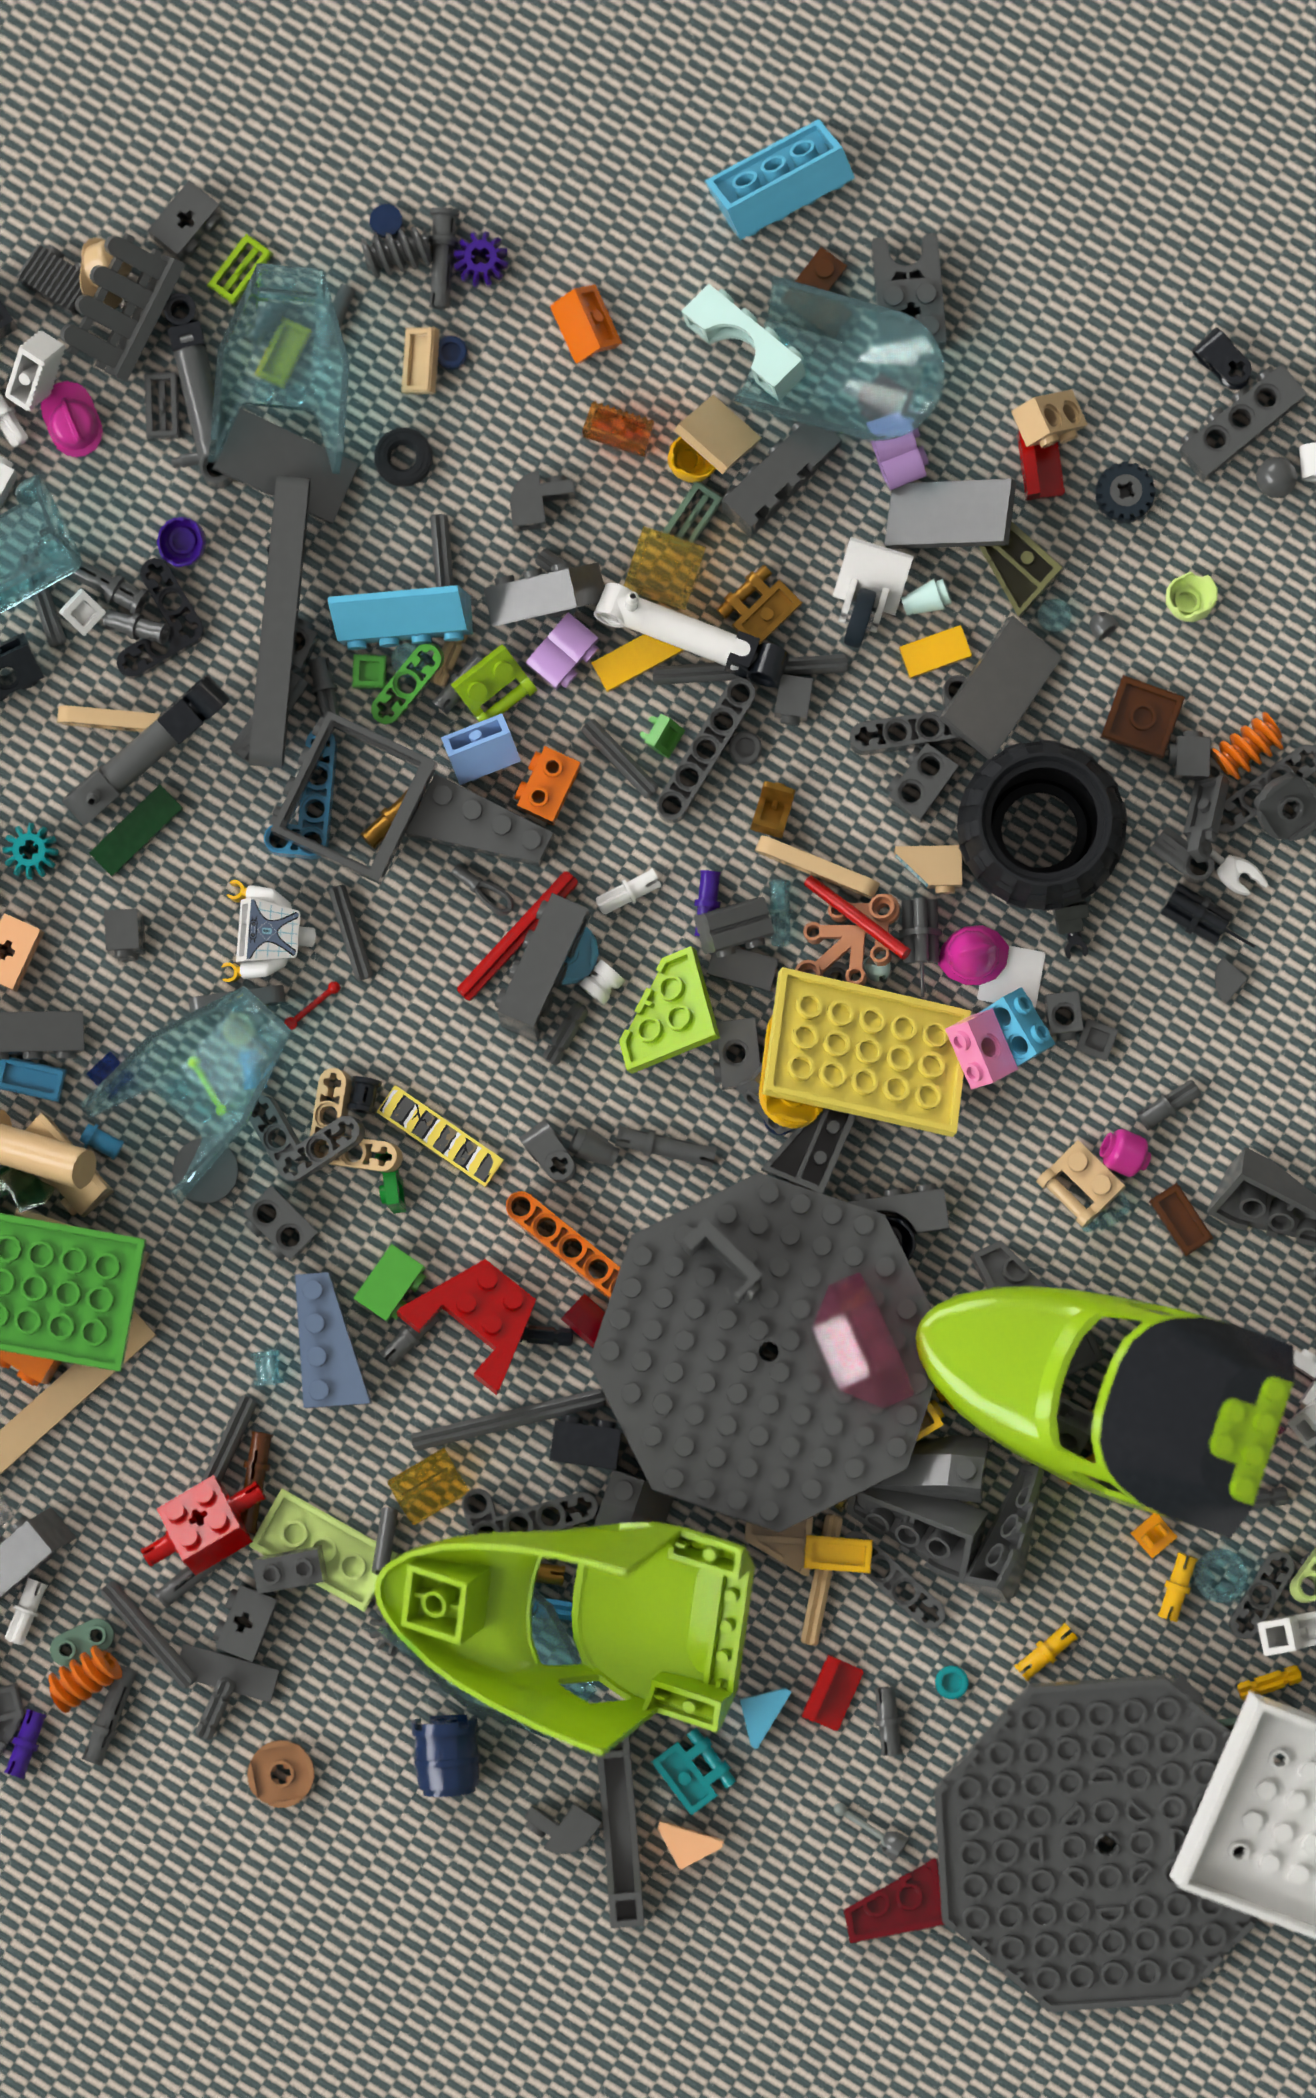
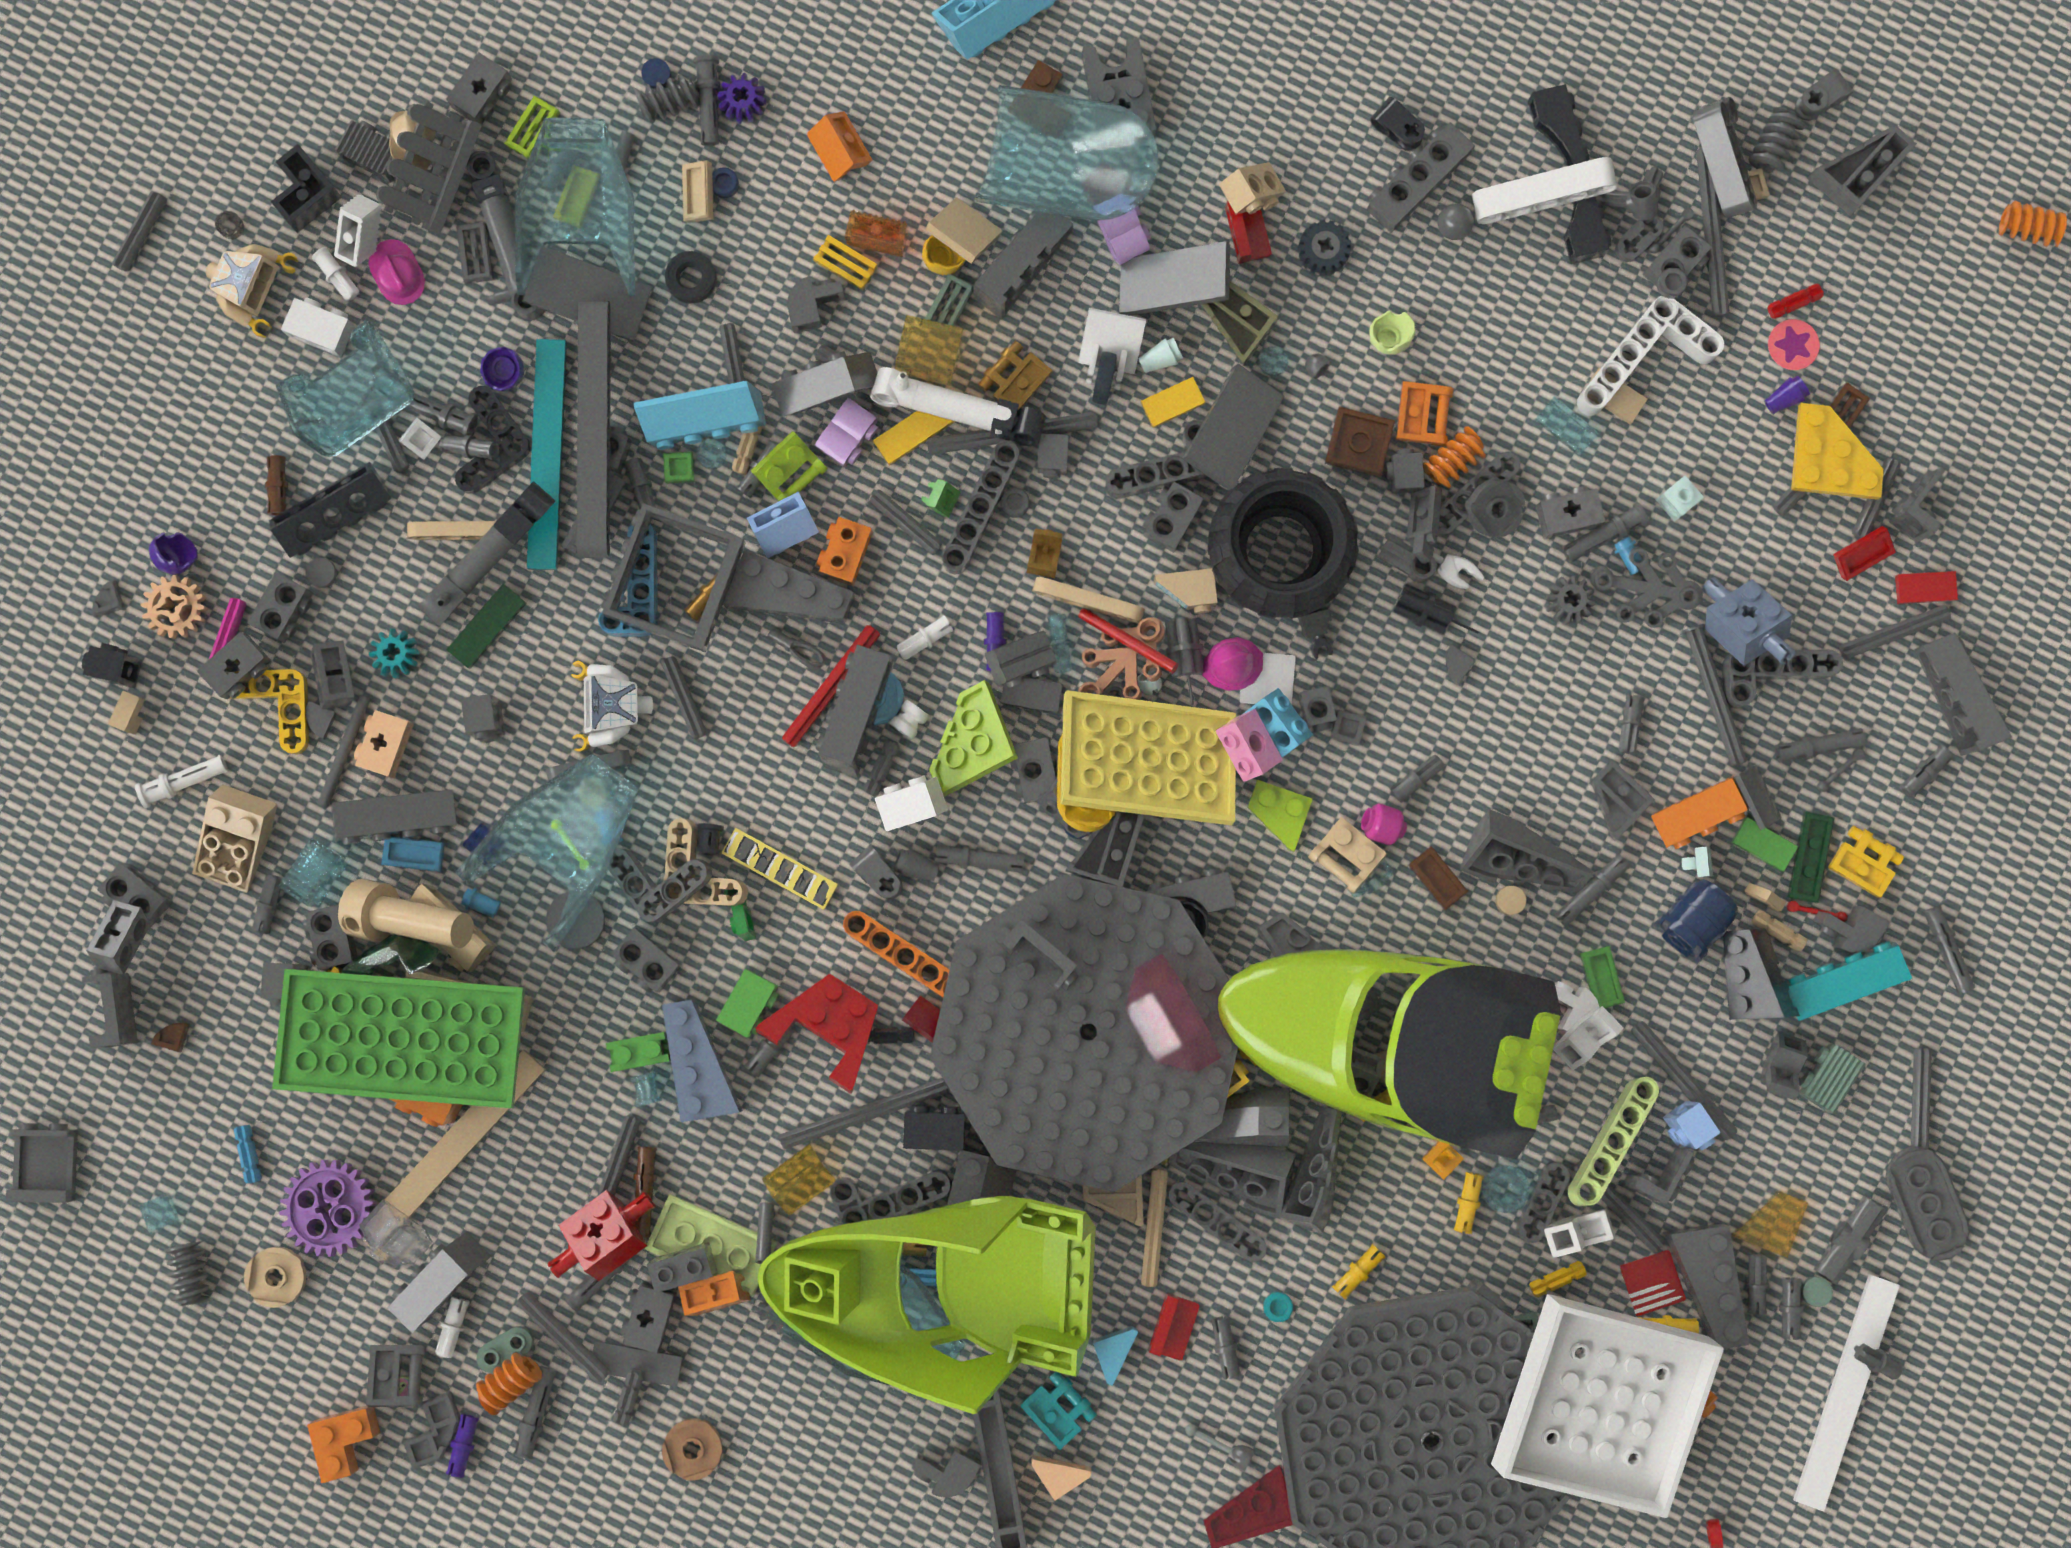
camera: 15 degrees left, 0 degrees up
(223, 635) = (547, 449): none -> teal tile
(263, 1325) = (638, 1051): none -> bright green brick
(292, 1022) = (639, 782): red hinge -> none
(321, 1603) = (713, 1294): none -> orange hinge
(416, 659) = (716, 451): bright green beam -> none
(446, 1755) = (837, 1419): dark blue piece -> none
(558, 440) = (824, 249): none -> yellow tile
(595, 1077) = (911, 803): none -> white brick
(717, 318) = (953, 129): light aqua arch -> none
(838, 1554) = (1167, 1204): yellow tile -> none
(1010, 1127) = (1280, 811): none -> lime wing
(1208, 691) = (1415, 412): none -> orange plate
(1260, 1252) = (1510, 900): none -> tan tile

